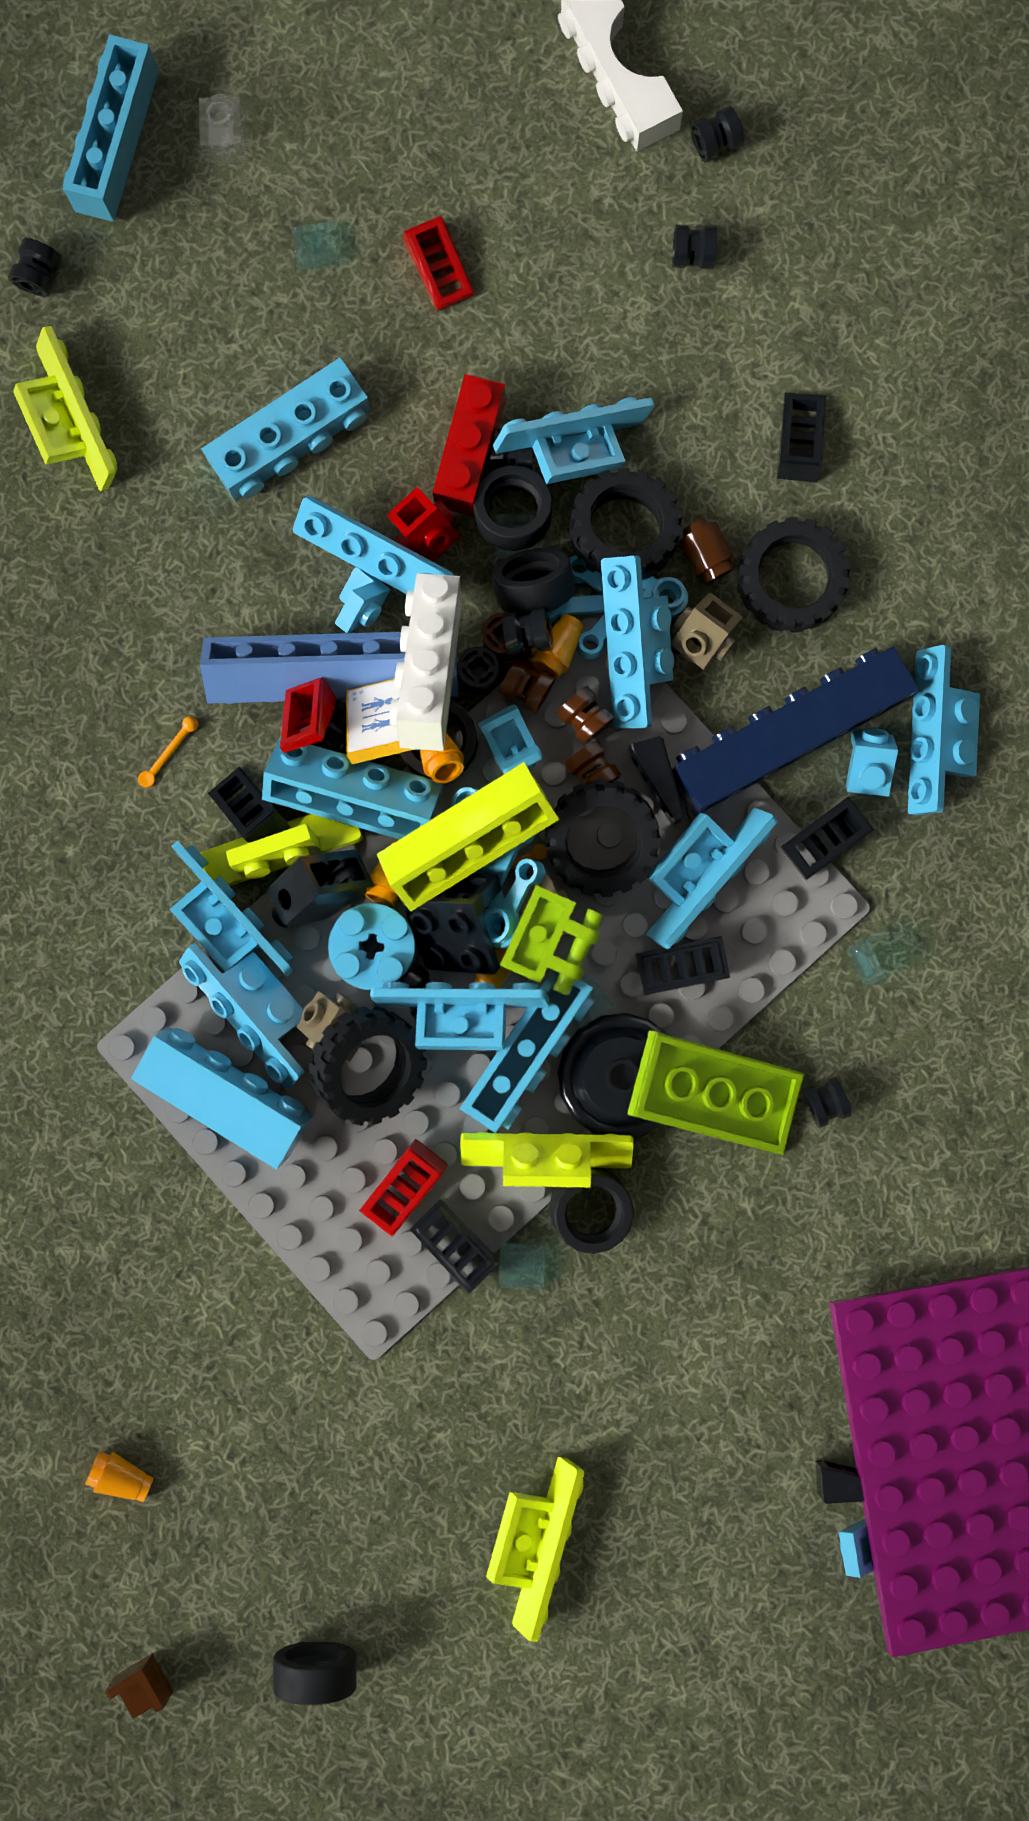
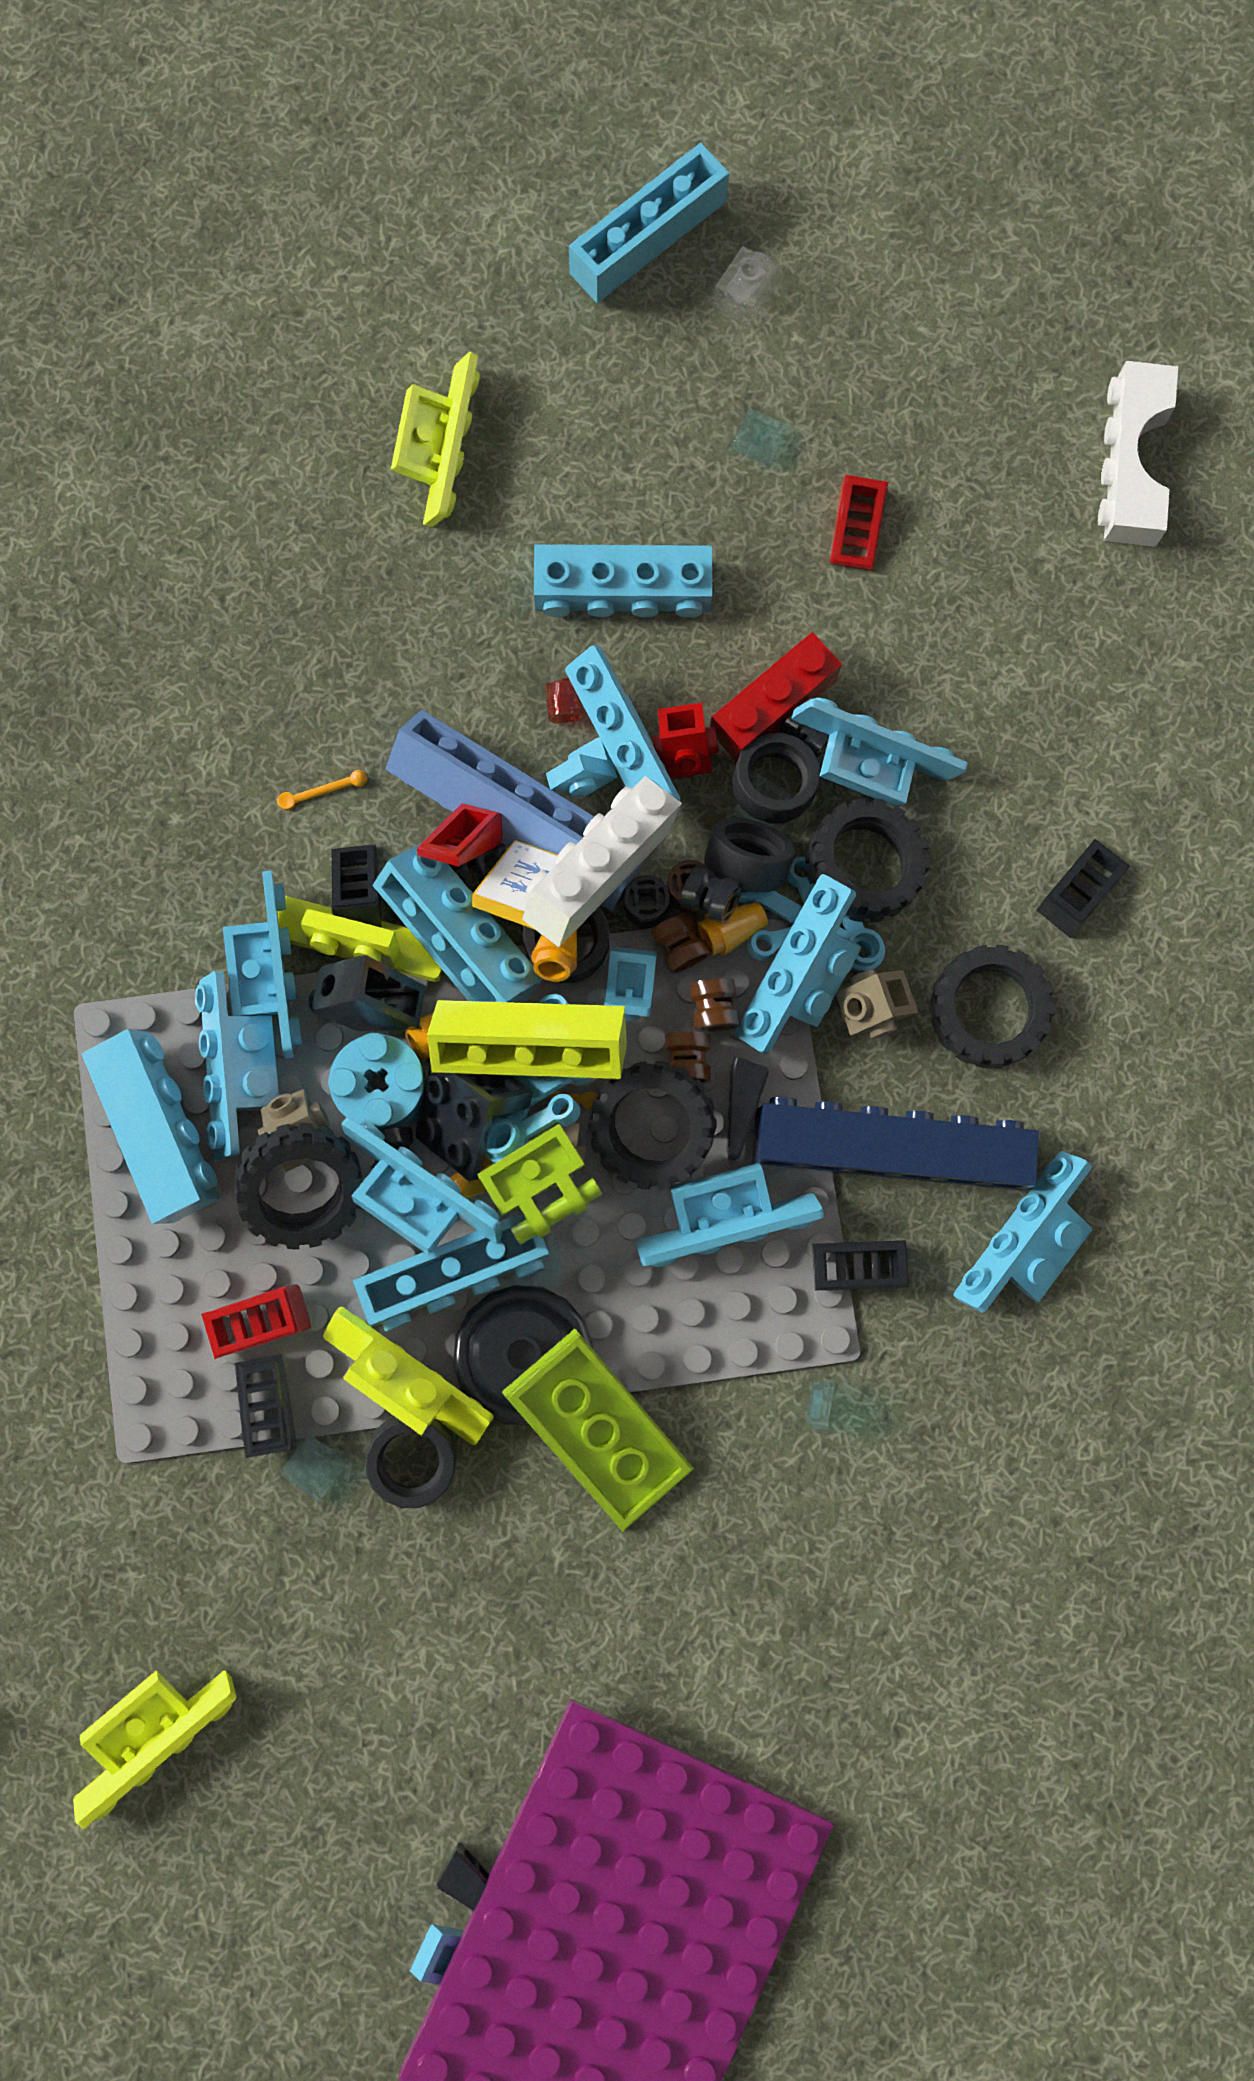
camera: 25 degrees right, 5 degrees down
(34, 267) = (500, 297): black wheel -> none
(307, 558) = (563, 702): none -> clear red hose
(694, 246) = (1098, 656): black wheel -> none
(707, 550) = (927, 932): reddish brown brick -> none
(717, 134) = (1186, 571): black wheel -> none
(718, 957) = (683, 1308): black slope -> none
(827, 1102) = (696, 1510): black wheel -> none
(871, 762) = (949, 1224): medium azure bracket -> none

